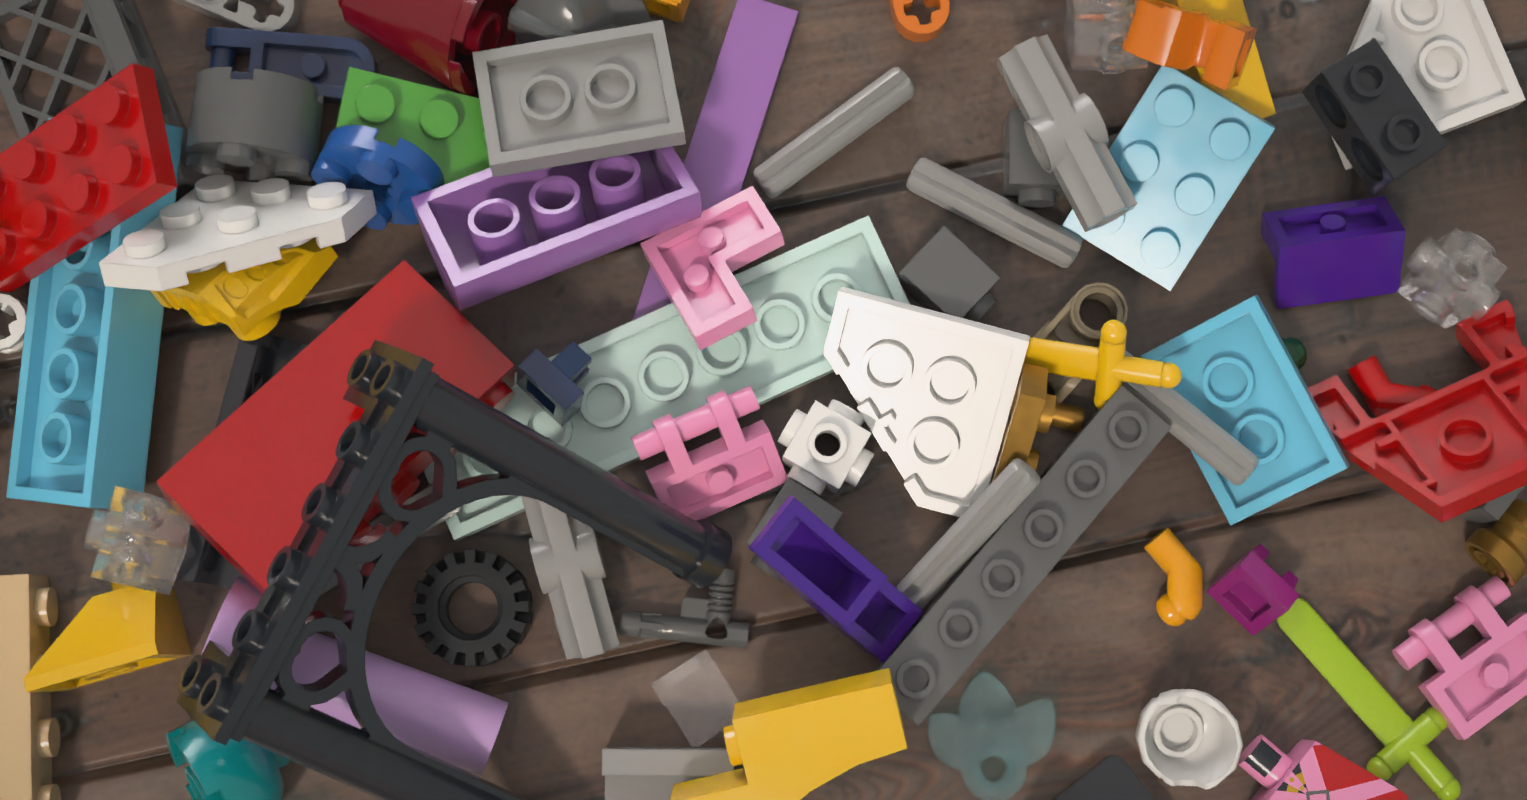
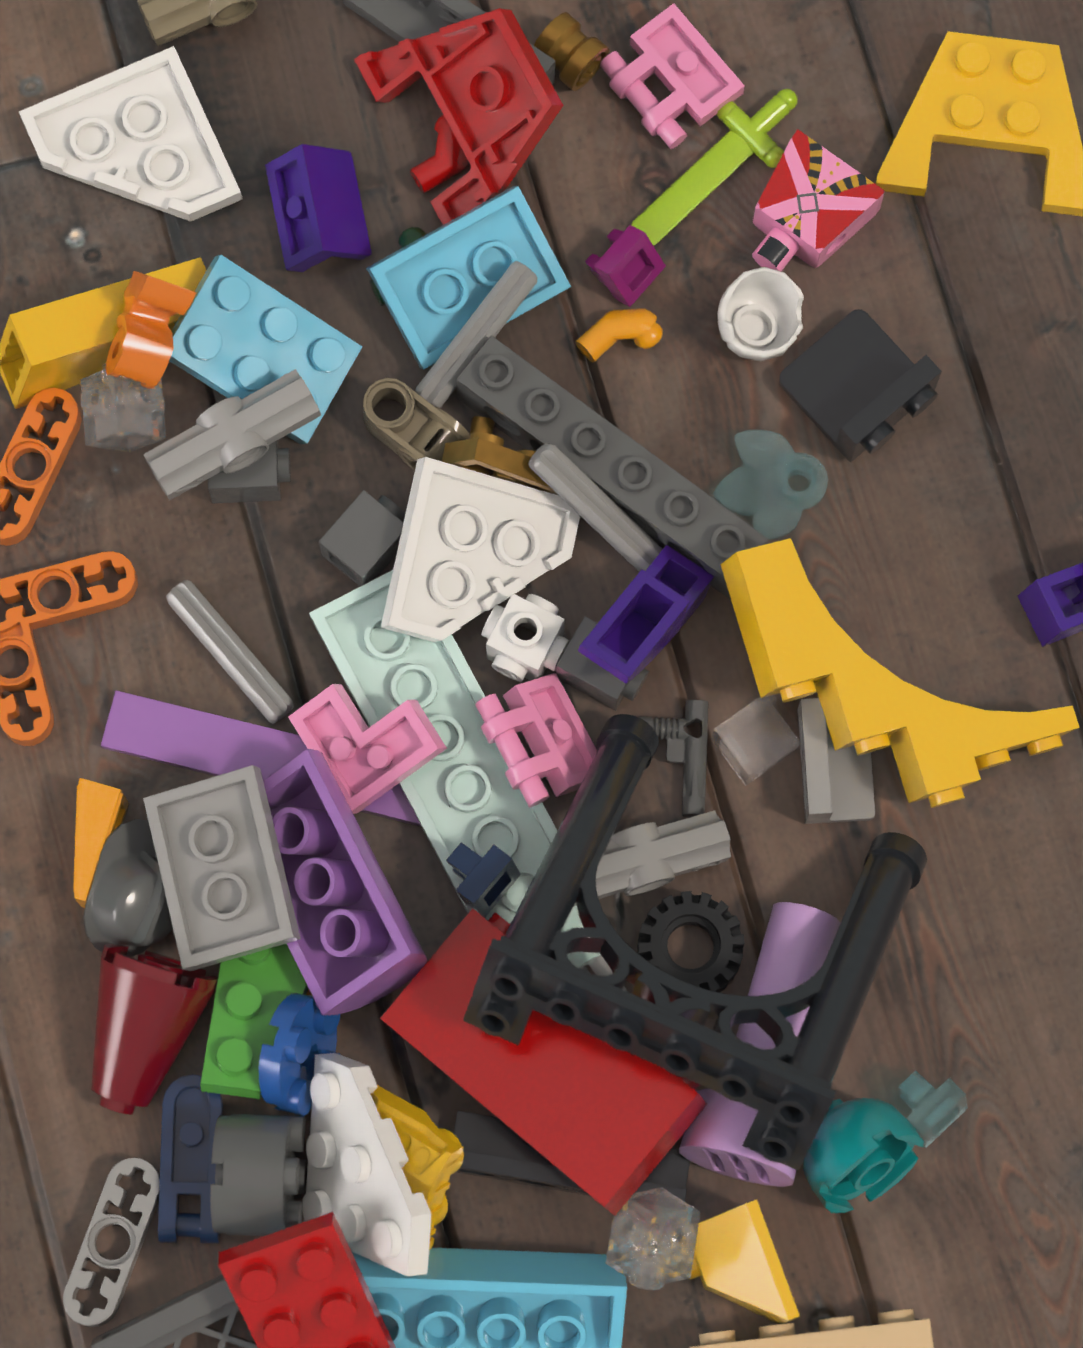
camera: 90 degrees left, 5 degrees down
(994, 212) = (297, 504): light grey axle -> none
(1102, 364) = (439, 394): yellow sword -> none
(1373, 116) = (202, 172): black brick -> none
(1434, 283) = (343, 120): clear brick -> none

